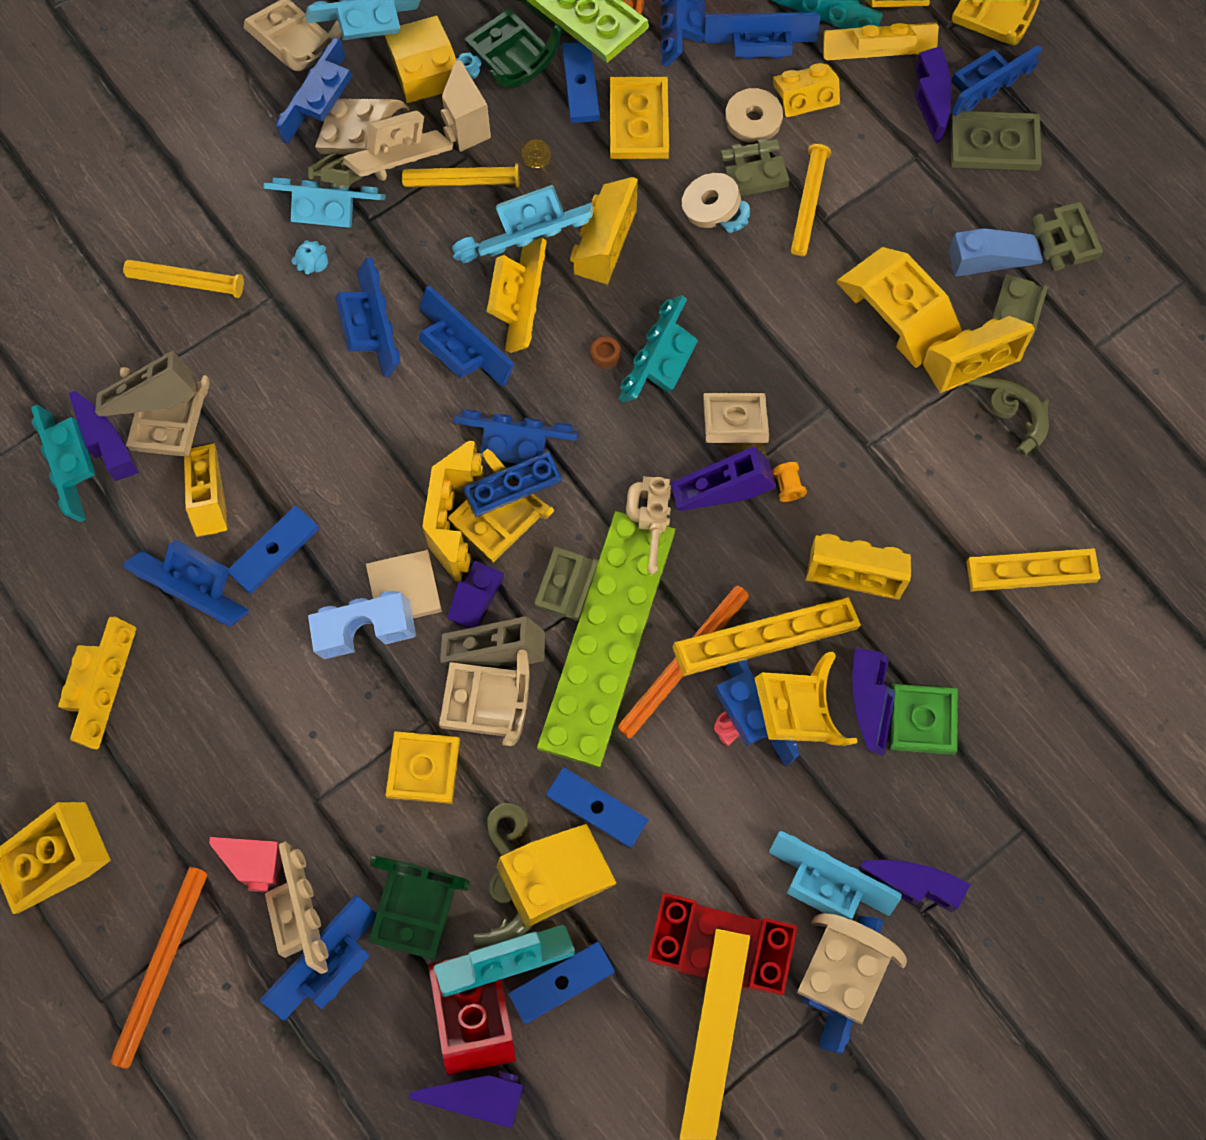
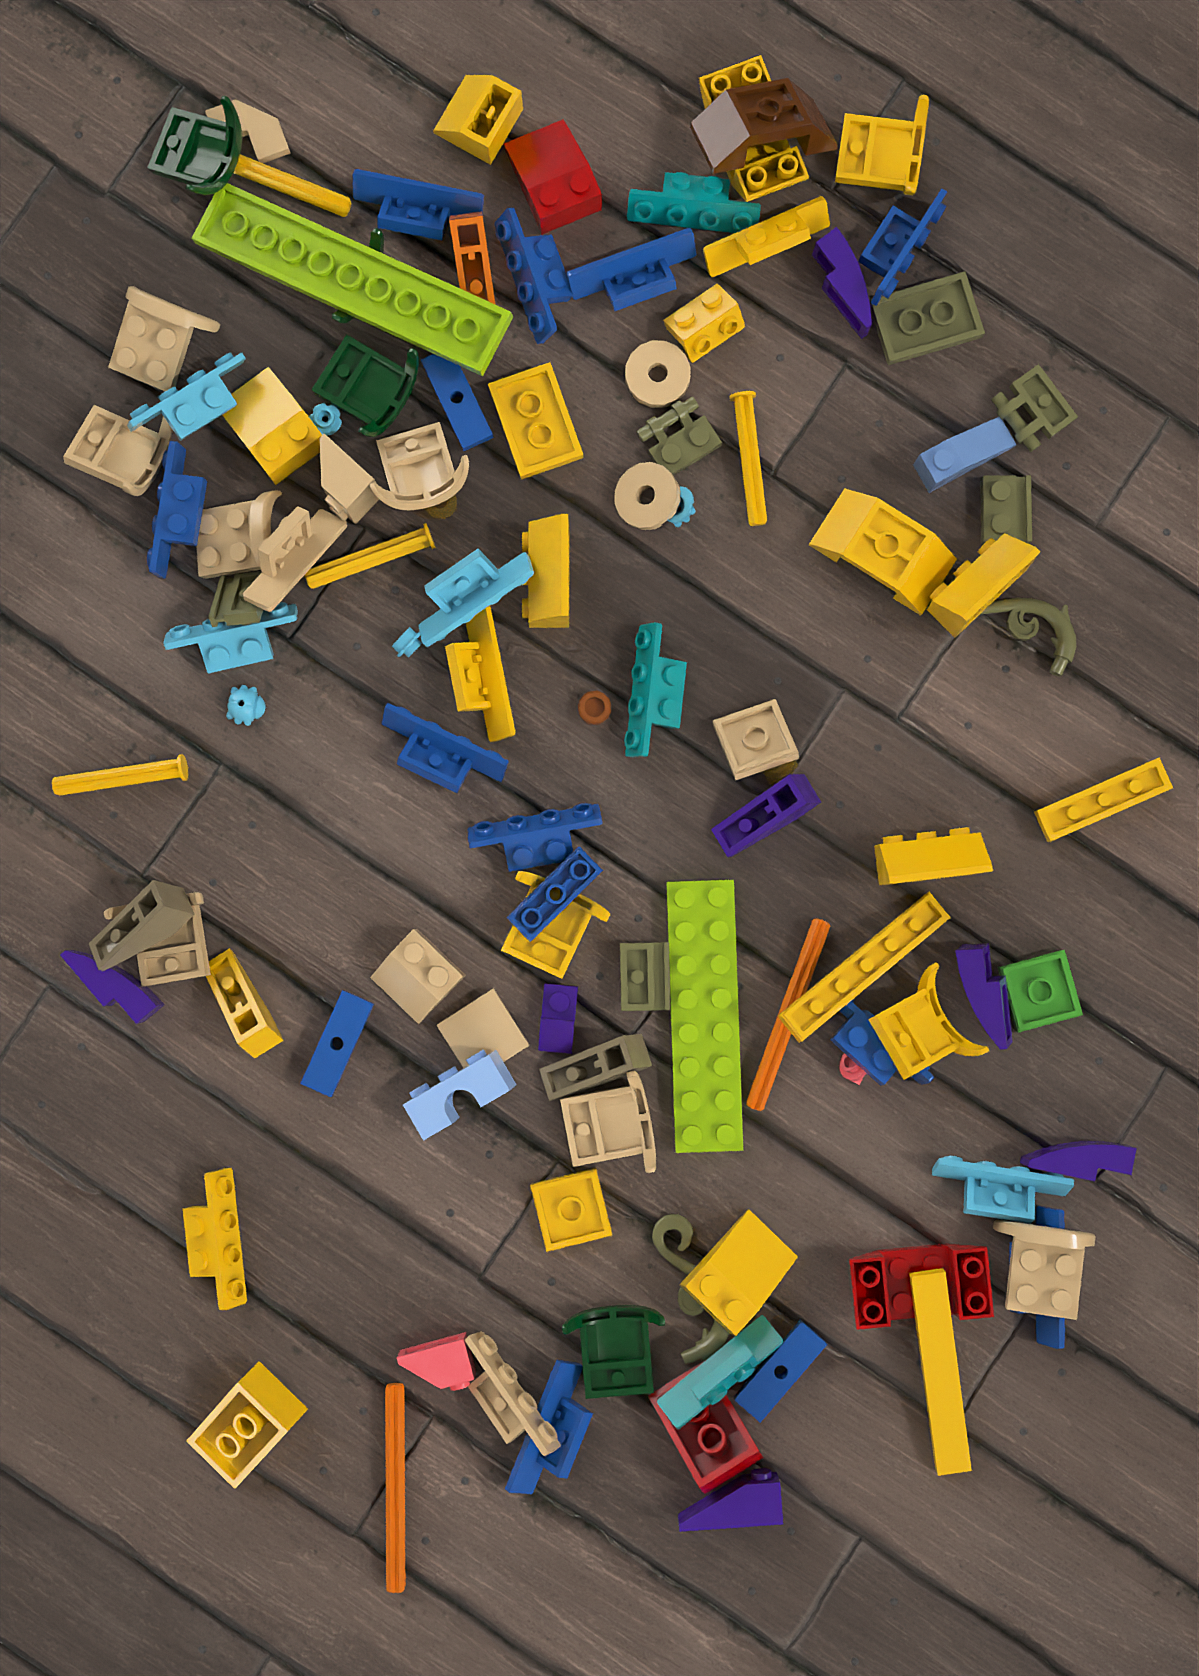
camera: 20 degrees left, 15 degrees up
(67, 458) = (86, 1022): teal bracket -> none
(190, 578) = (267, 1105): blue bracket -> none
(366, 320) = (333, 760): blue bracket -> none
(366, 516) = (417, 975): none -> tan slope
(447, 477) = (498, 899): yellow slope -> none
(527, 120) = (418, 469): none -> tan piece
(578, 798) = (775, 1198): blue tile -> none
(653, 516) = (709, 875): tan piece -> none
(789, 482) = (832, 789): light orange bush -> none

